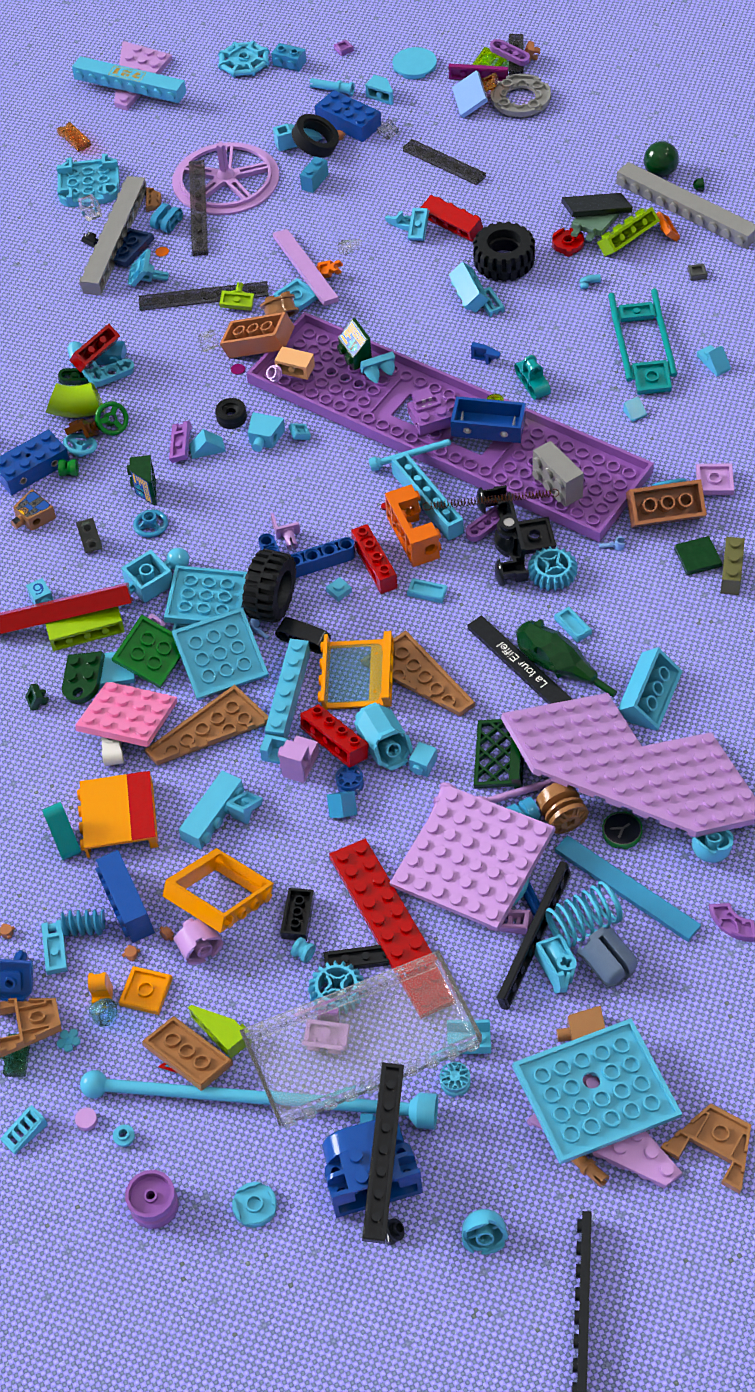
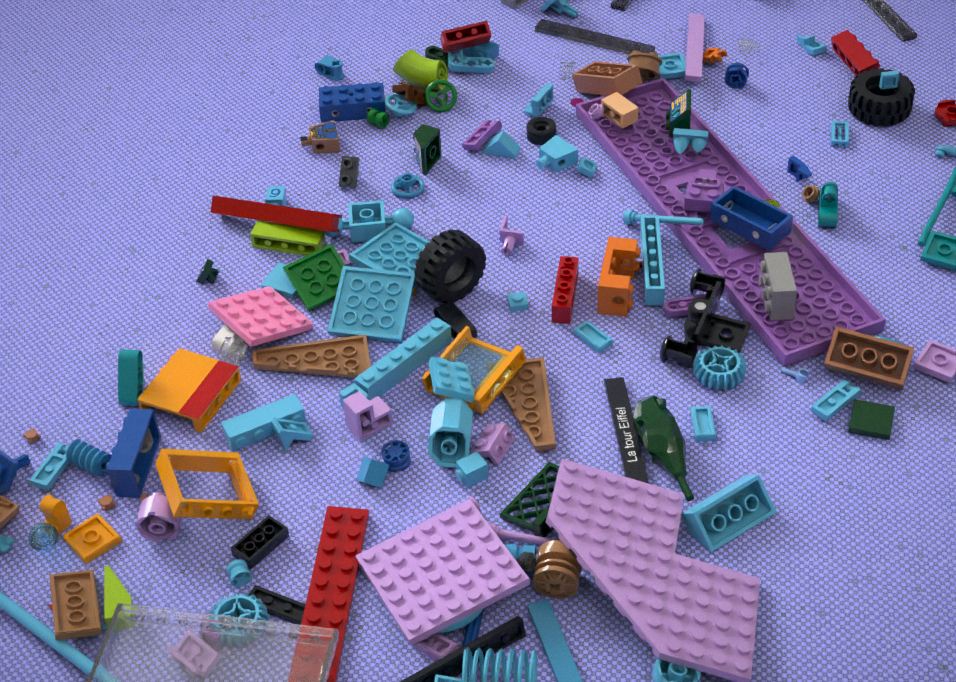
camera: 30 degrees right, 10 degrees down
(83, 674) = (255, 273): dark green plate -> none
(130, 759) = (232, 350): none -> clear brick
(207, 384) = (540, 101): none -> medium azure bracket
(237, 299) = (617, 49): lime plate -> none
(254, 624) = (422, 298): light blue hand -> none
(317, 557) = (515, 267): blue beam -> none
(334, 735) = (410, 412): red brick -> none
(350, 689) = (451, 379): none -> medium azure plate
(364, 281) = (736, 76): none -> blue wheel
(418, 224) = (820, 50): medium azure plate -> none
(420, 726) = (494, 442): none -> lavender bracket
(468, 287) = (826, 113): brick -> none
(492, 499) = (698, 279): reddish brown piece -> none
(505, 371) = (810, 193): none -> medium nougat plate
(509, 234) = (889, 80): none -> medium azure tile
(537, 813) = (527, 561): none -> clear smoke plate
(622, 830) = (603, 622): black tile -> none
(634, 409) = (907, 270): medium azure slope -> none
(661, 553) = (835, 400): none -> medium azure plate
(732, 565) = (897, 441): olive brick -> none

